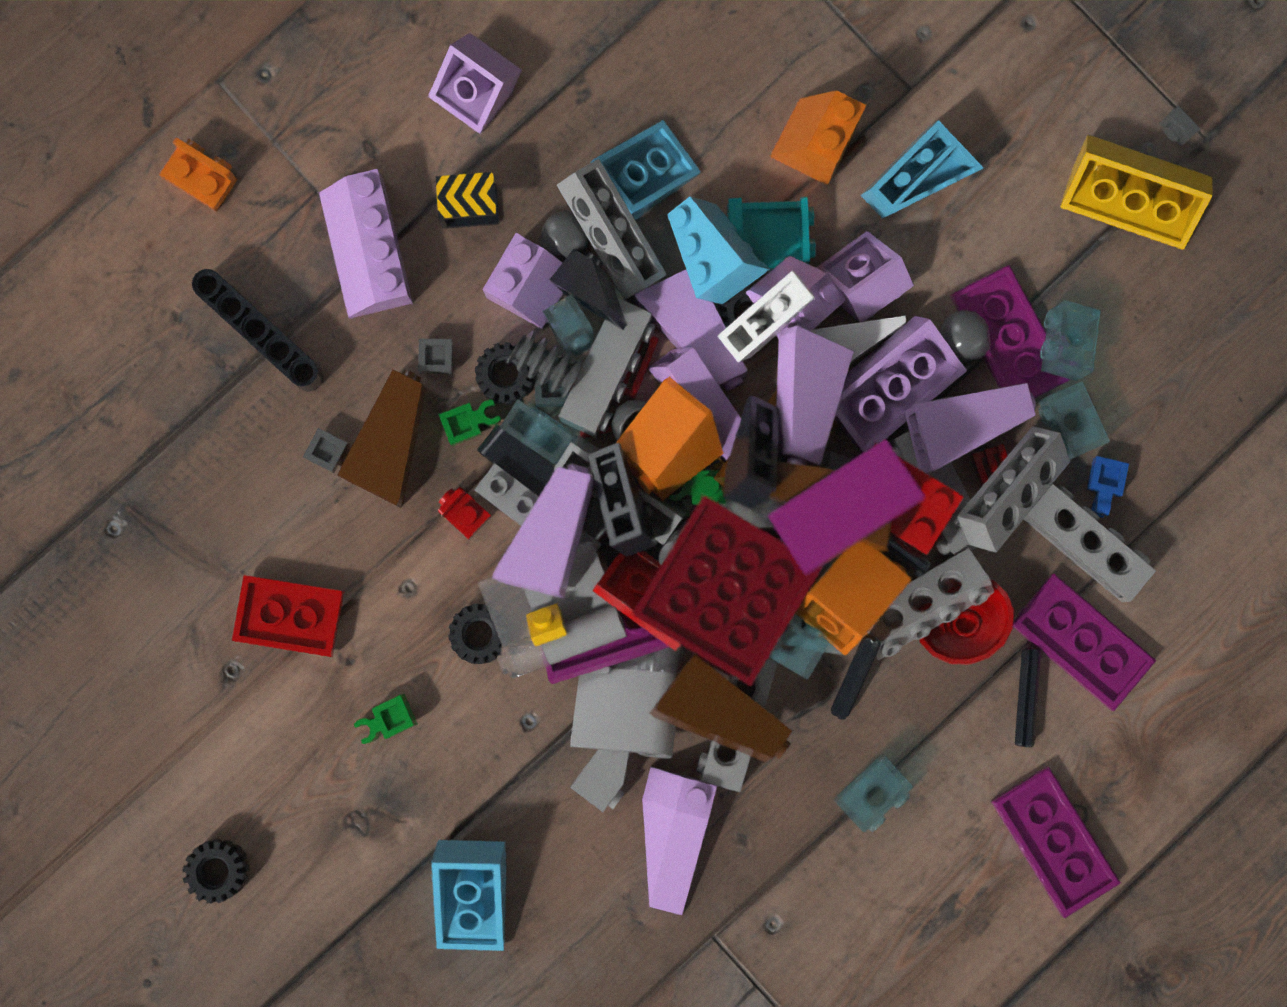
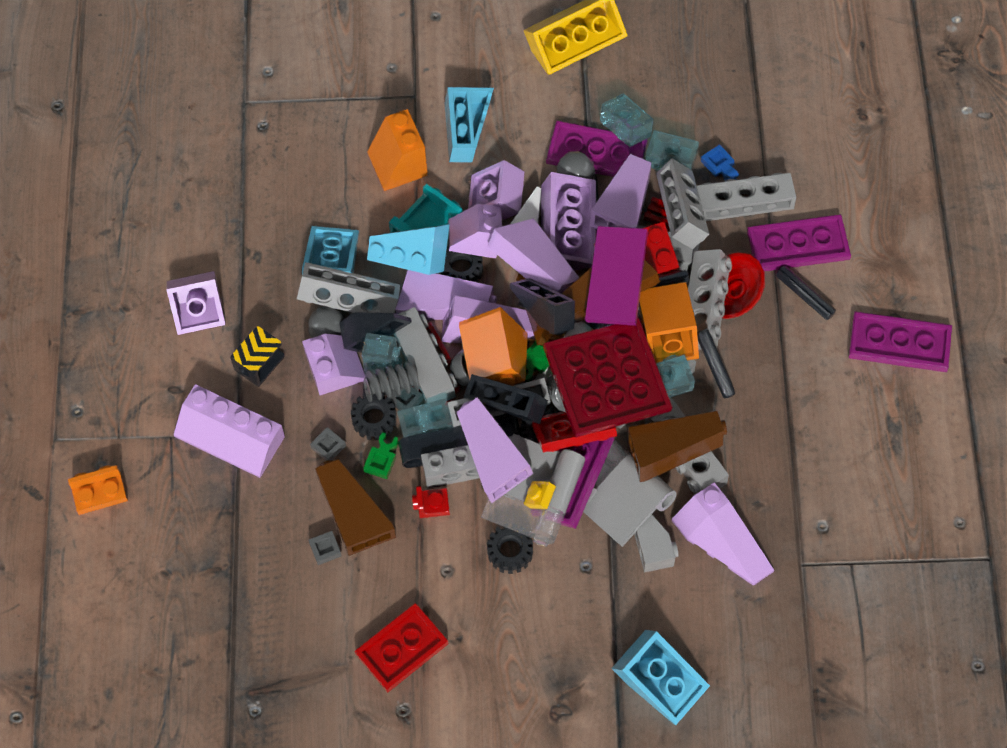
camera: 45 degrees left, 20 degrees down
(244, 322) = (209, 522): black beam -> none
(390, 719) = (515, 637): green plate -> none
(766, 317) = (474, 242): white slope -> none
(854, 797) = (789, 424): clear light blue brick -> none

